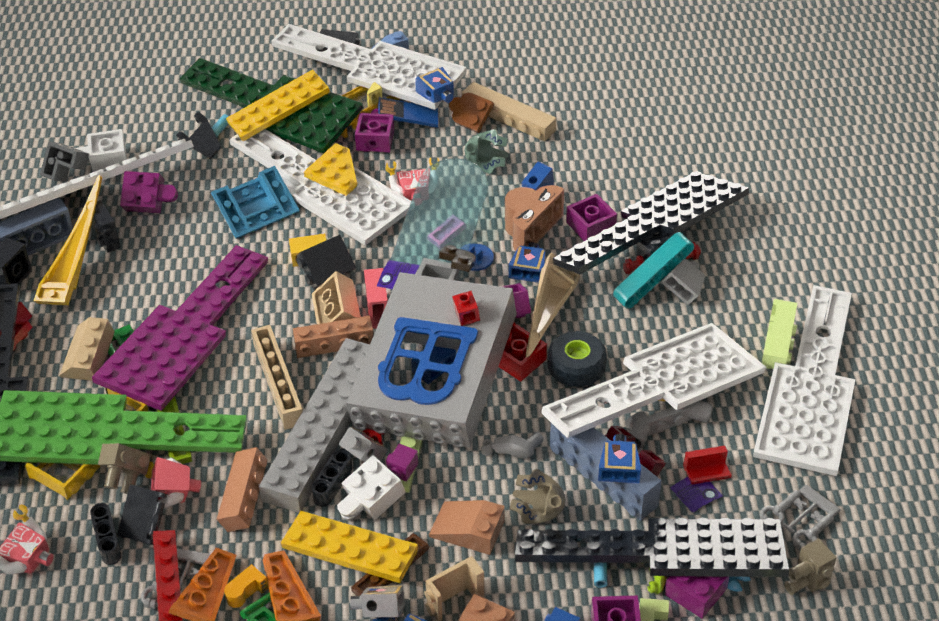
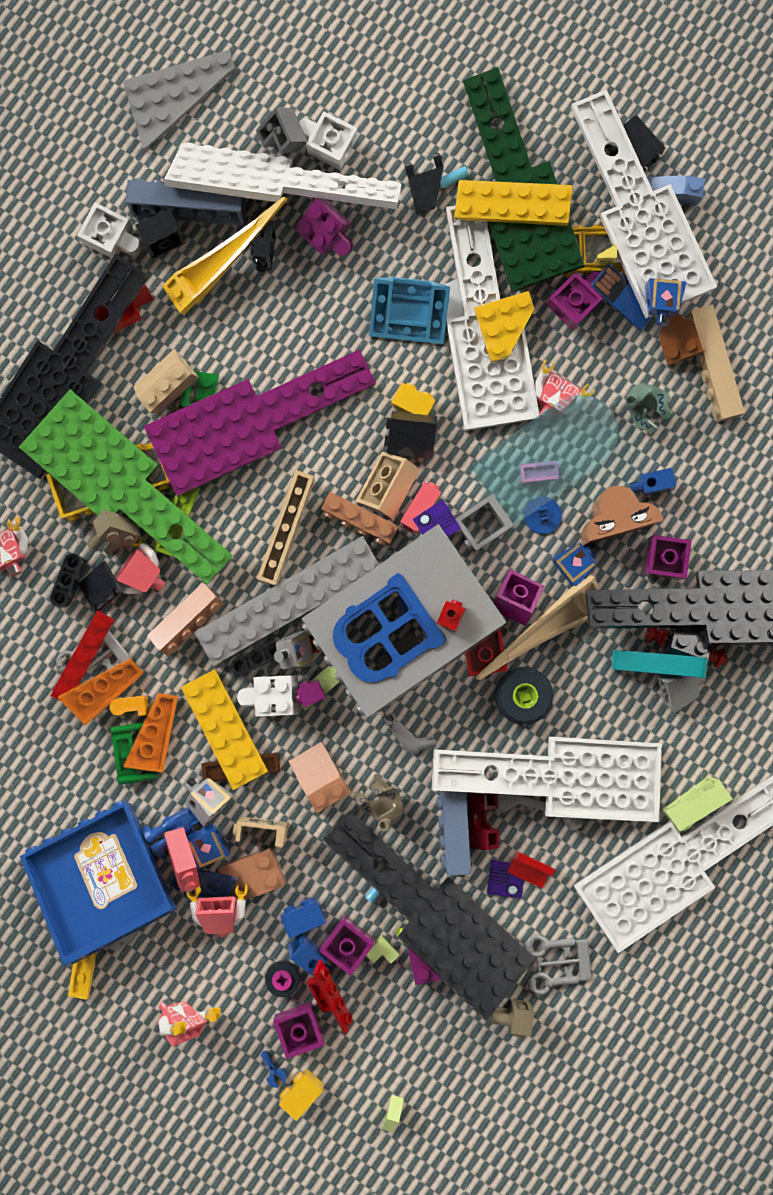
camera: 35 degrees right, 40 degrees up
(459, 258) = (523, 515): dark brown plate -> none
(619, 461) = (452, 839): blue torso -> none

